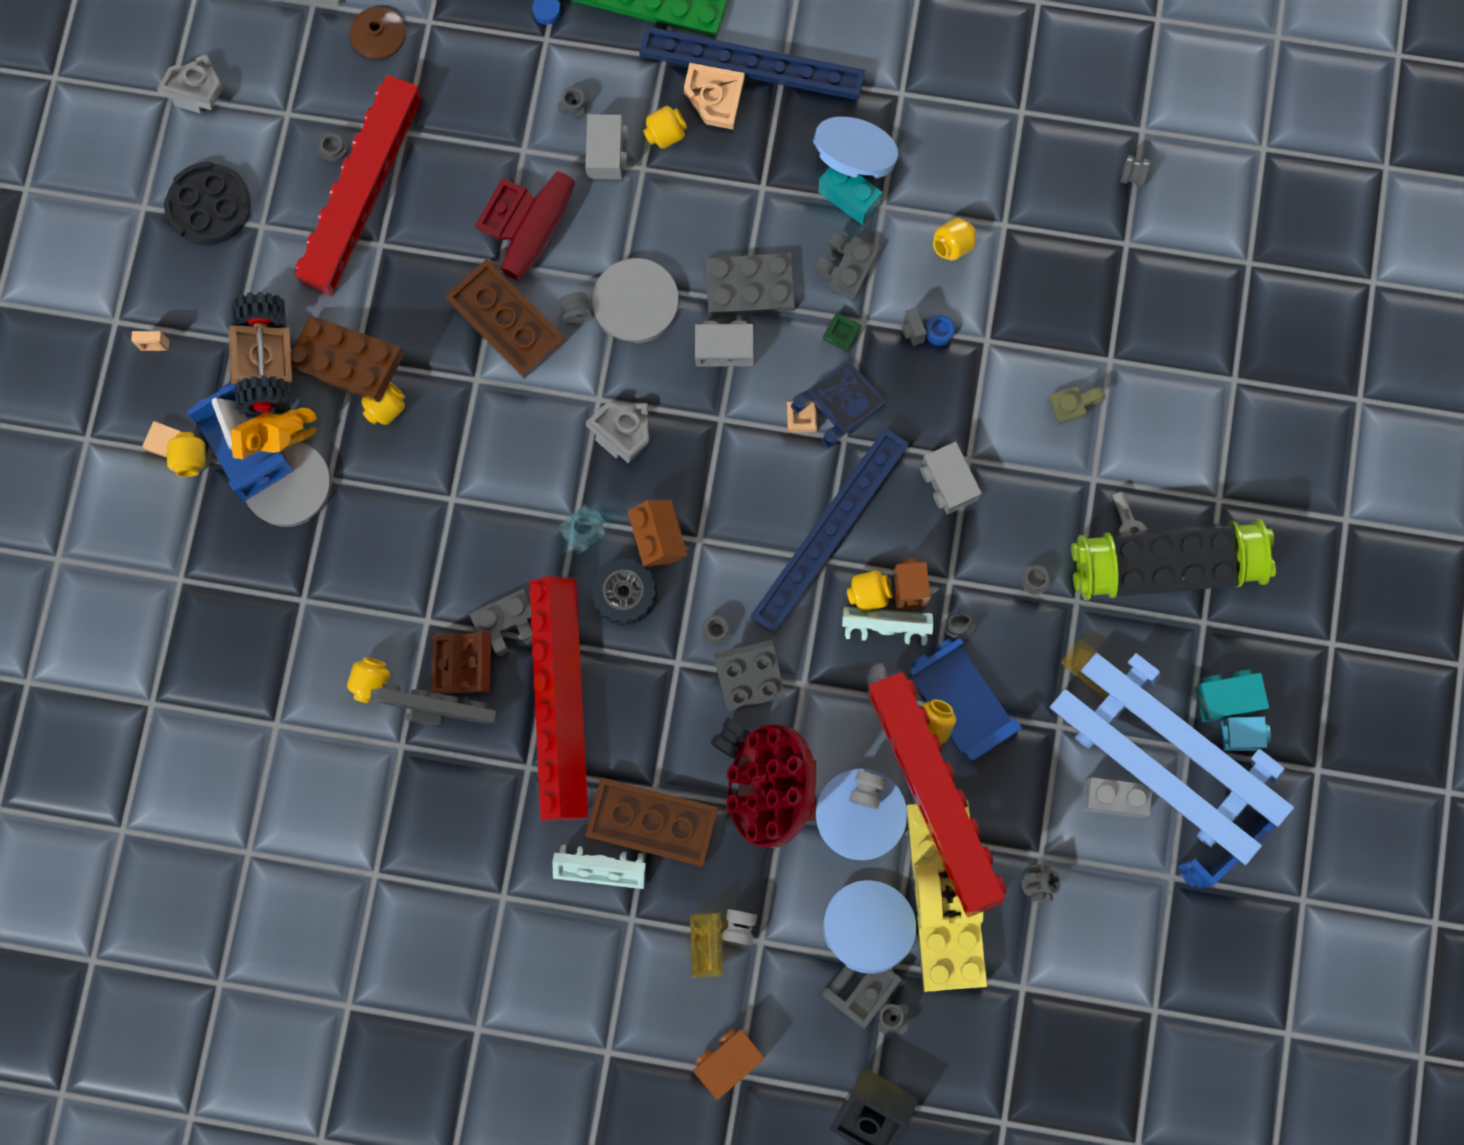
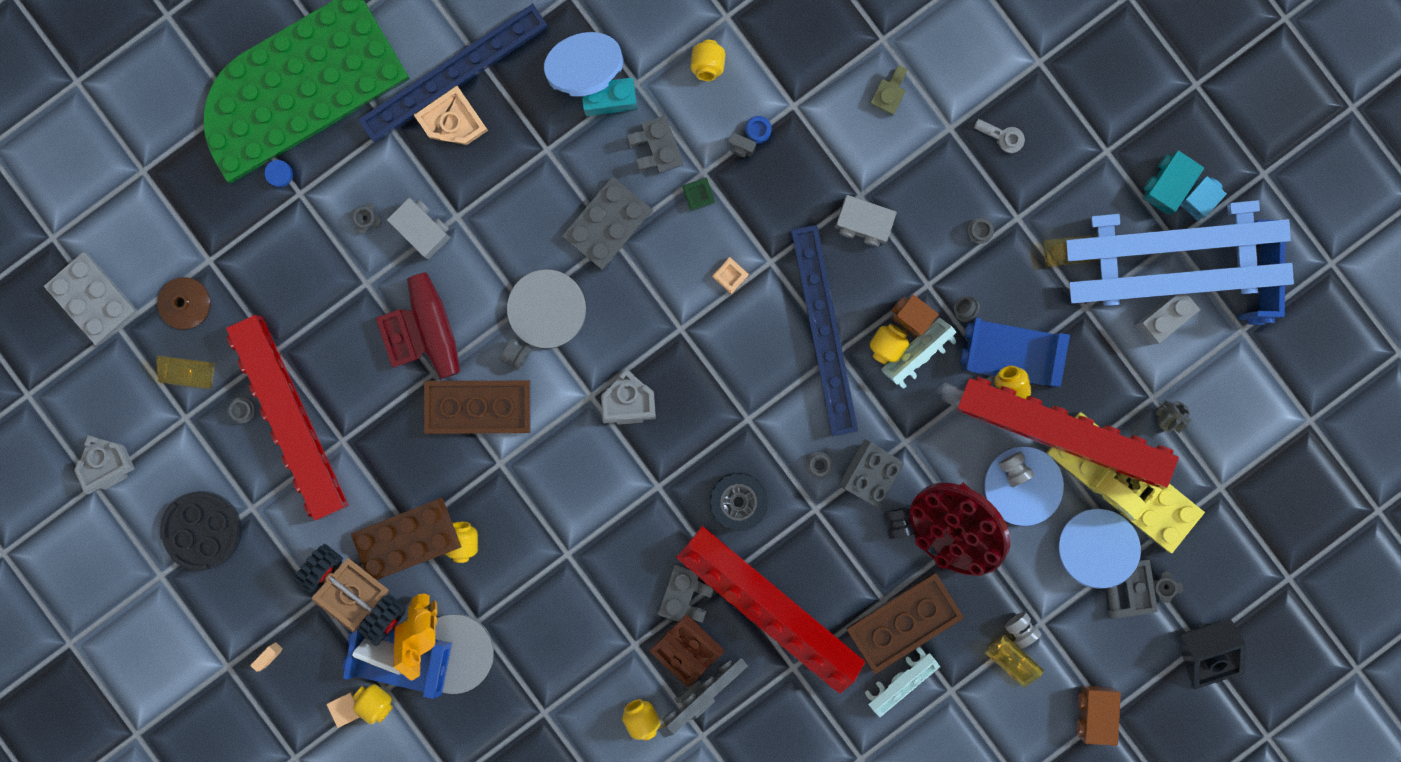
camera: 55 degrees left, 10 degrees up
(324, 80) = (185, 372): none -> clear yellow slope
(578, 541) = (666, 500): clear light blue brick -> none
(657, 533) = (722, 445): dark orange brick -> none
(665, 127) = (444, 175): yellow head -> none
(723, 344) = (634, 280): light grey brick -> none
(843, 398) = (745, 237): flag -> none
(1173, 559) = (1055, 132): black brick -> none

